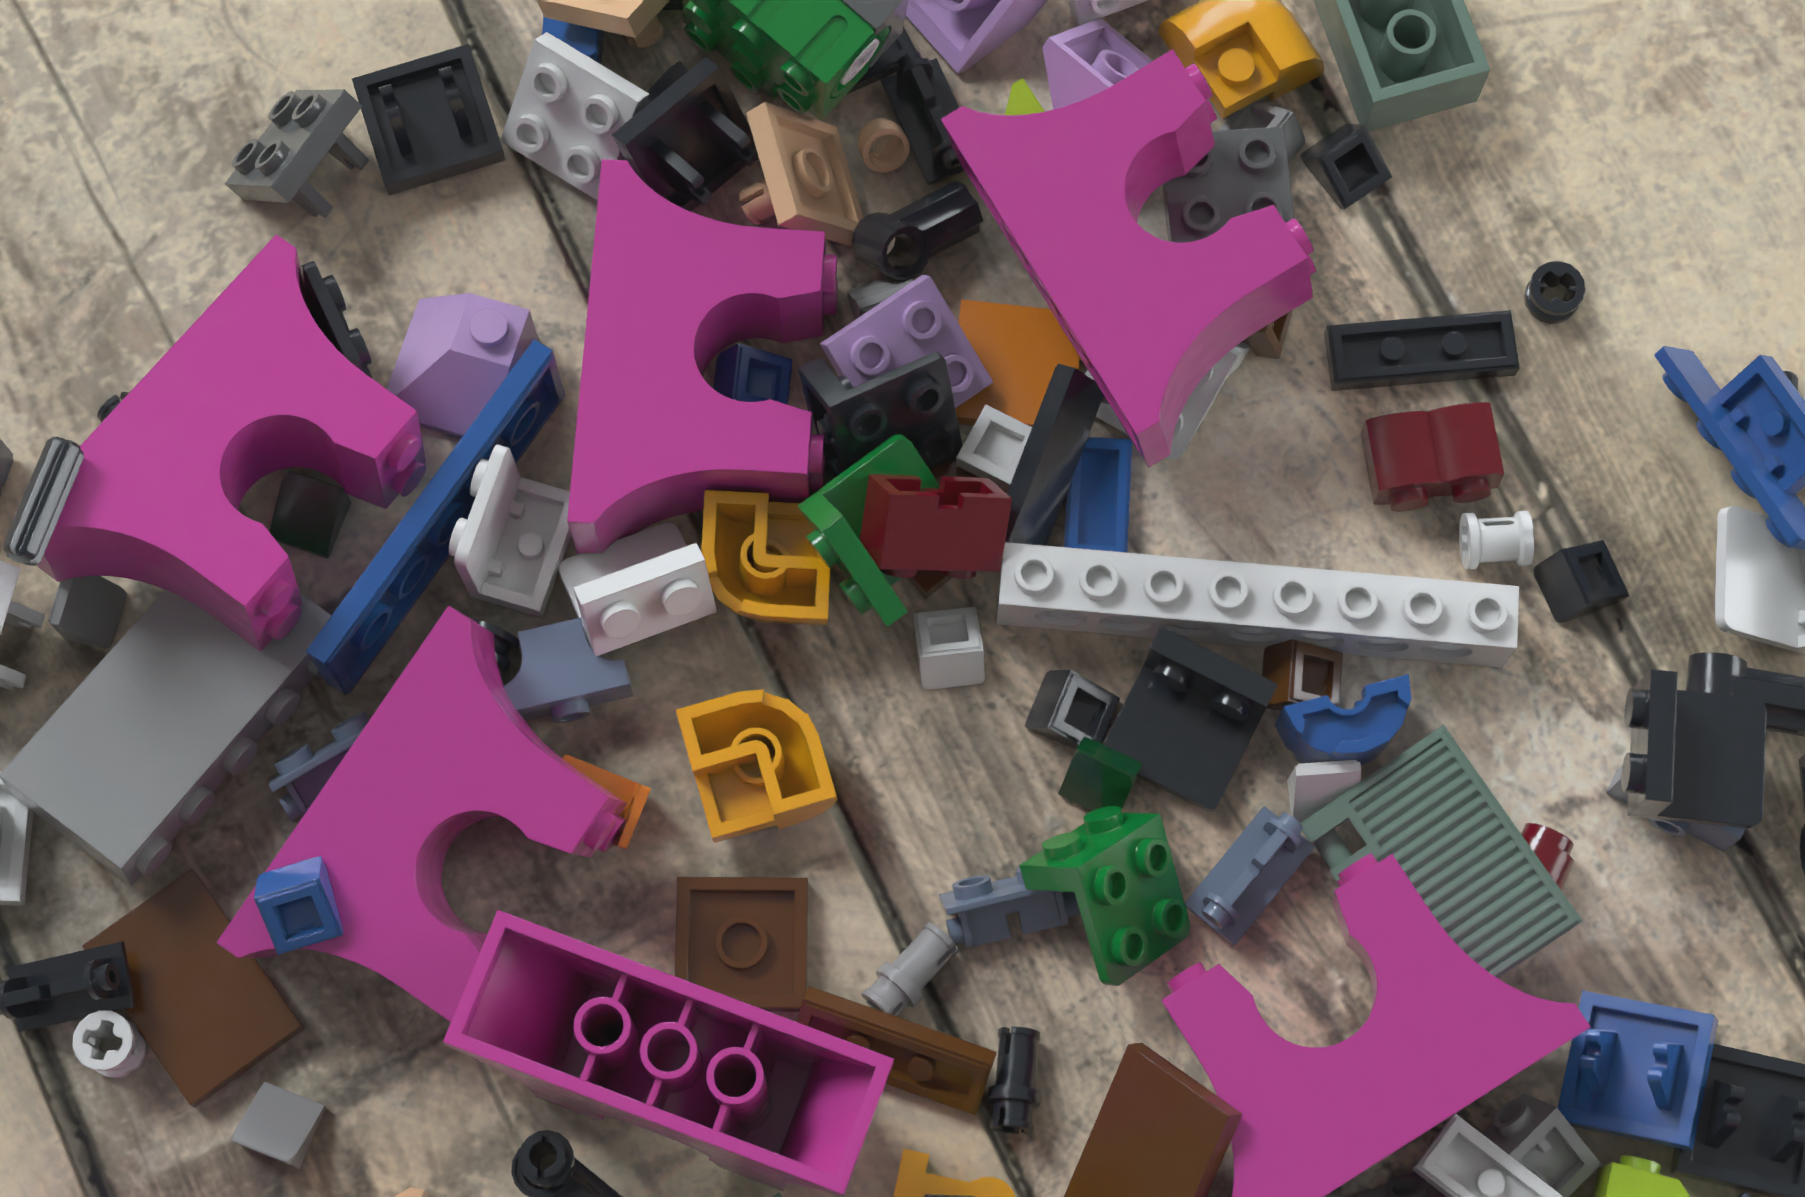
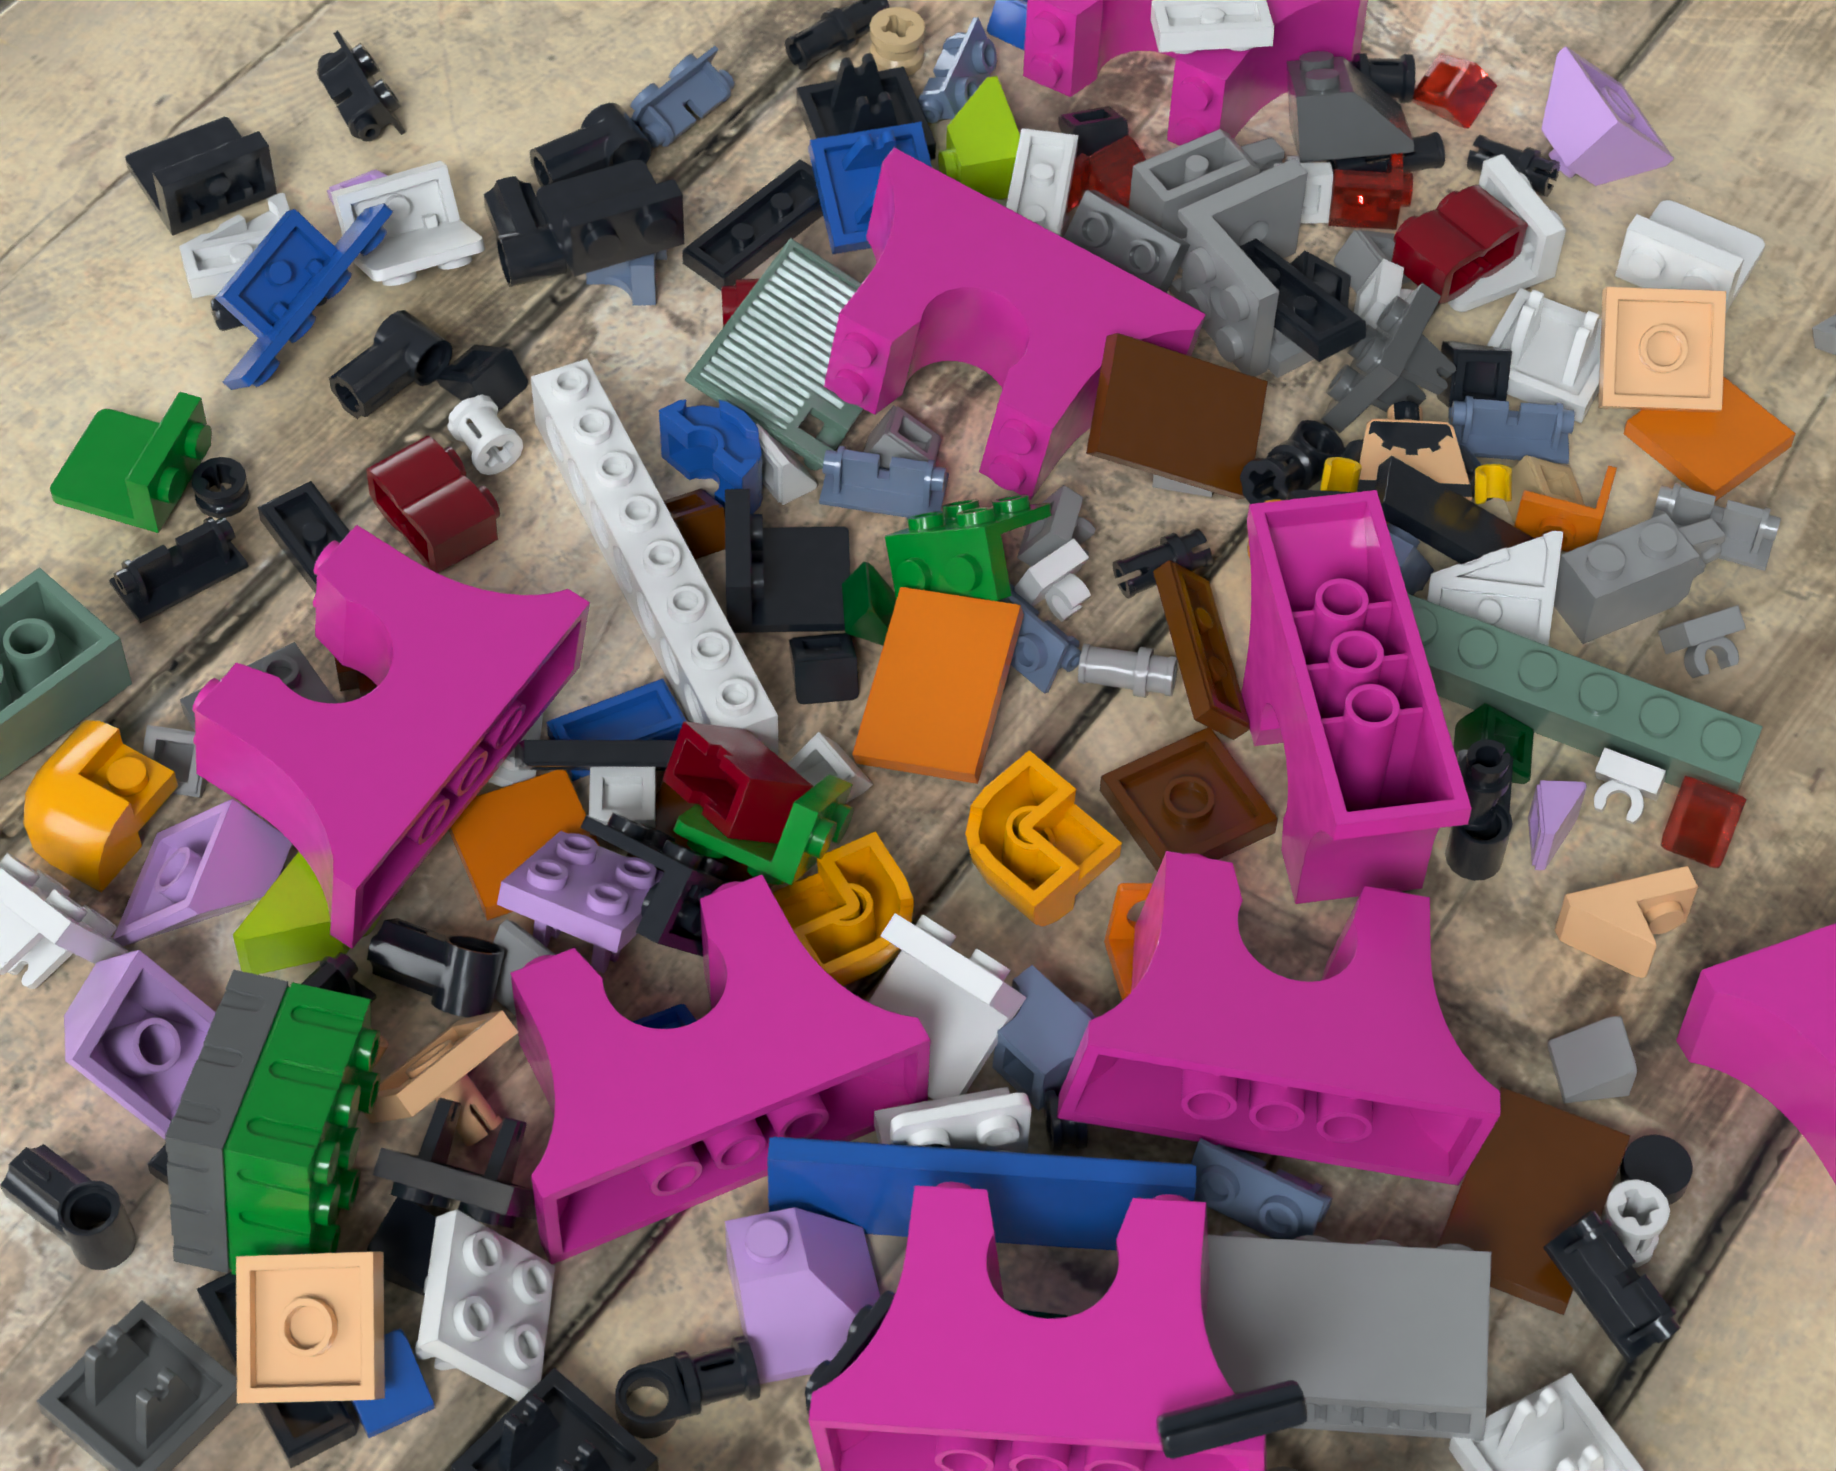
camera: 120 degrees left, 20 degrees down
(152, 1111) = (1659, 1162): none -> black tile
(298, 905) = (1422, 1053): blue slope -> none
(434, 244) = (688, 1385): none -> black connector
(976, 782) = (938, 685): none -> orange tile
(1045, 962) = (1056, 581): none -> white tile
(1111, 1004) = (1055, 531): none -> light grey tile
(1290, 918) = (902, 437): none -> light grey slope
(1347, 164) = (162, 681): black slope -> none
(1468, 215) = (177, 573): none -> black hinge
(1613, 223) = (133, 465): none -> green bracket
(1633, 511) = (400, 354): none -> black piece
(1656, 932) = (756, 228): none -> black tile

